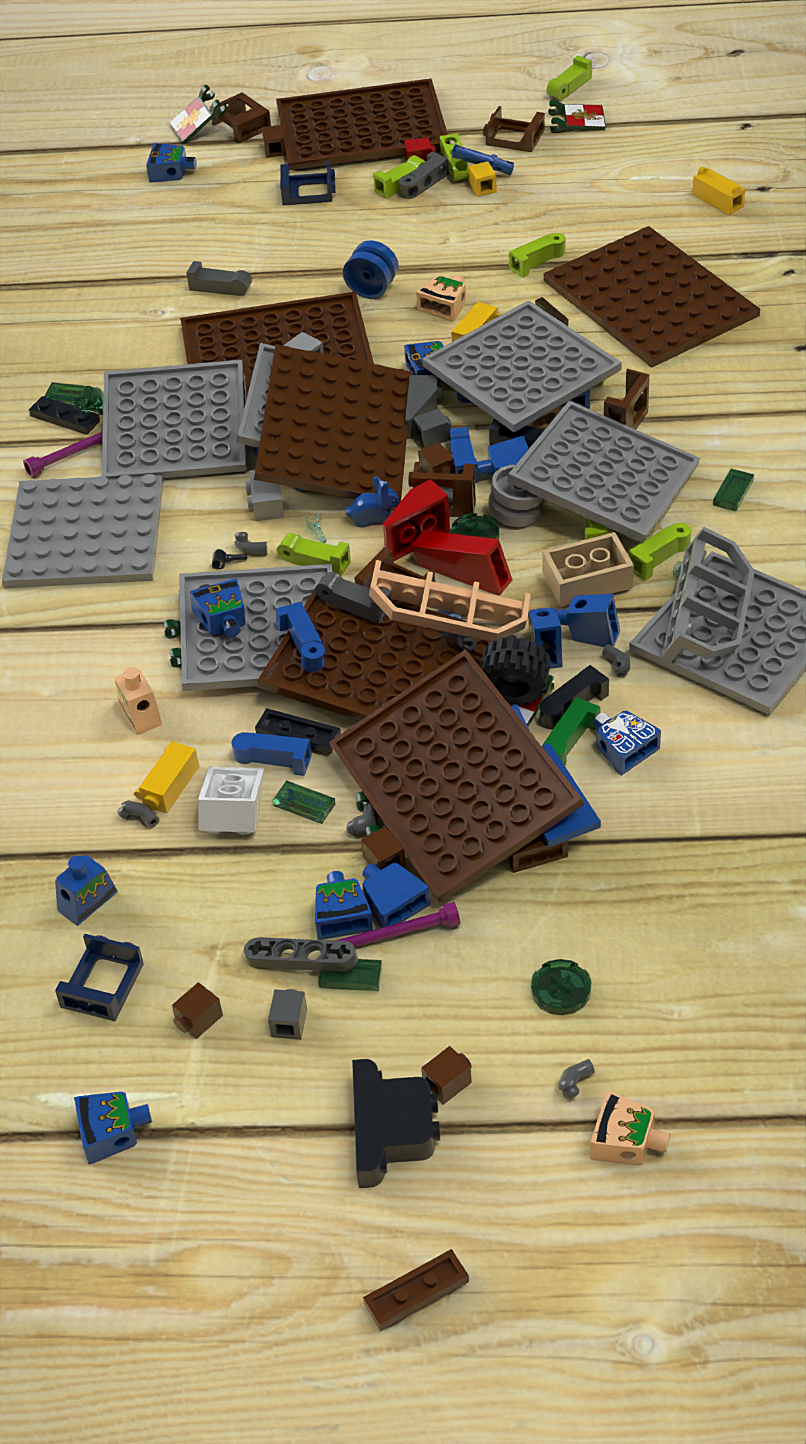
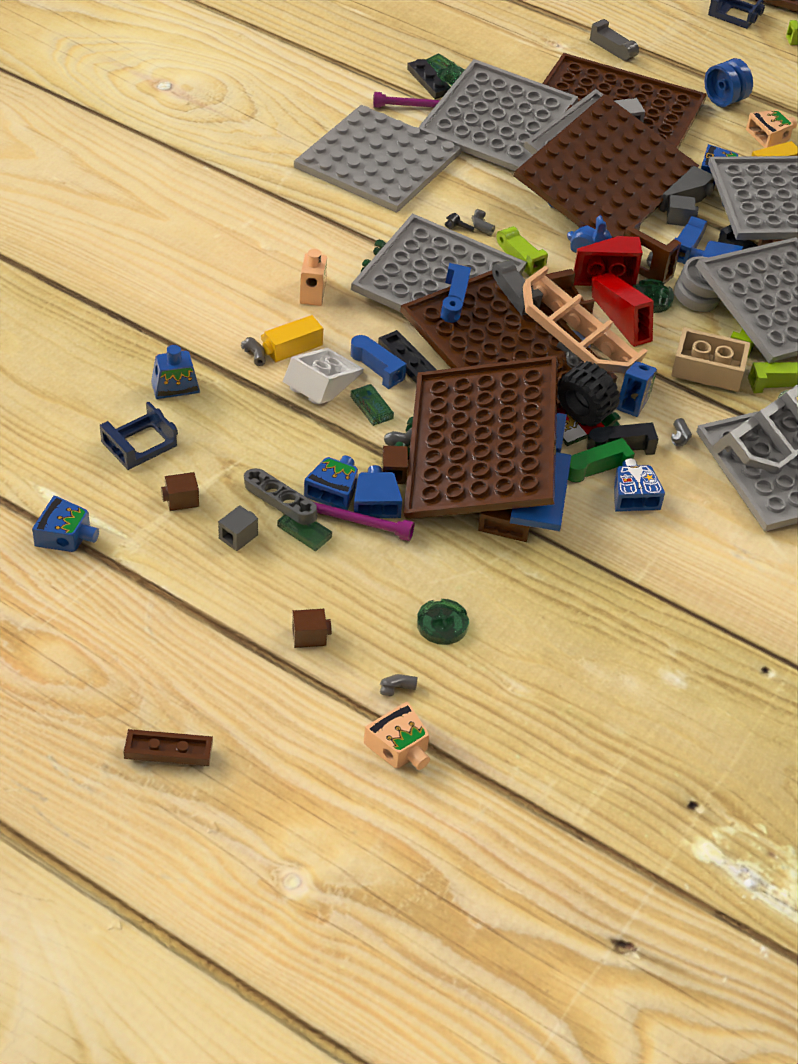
camera: 25 degrees right, 0 degrees up
(219, 607) = (419, 247): blue torso -> none
(265, 499) = (517, 199): light grey slope -> none
(316, 527) = (539, 234): clear light blue hand -> none
(390, 1121) = (244, 634): black brick -> none
(435, 460) = (663, 230): reddish brown brick -> none
(592, 619) = (683, 394): blue torso -> none

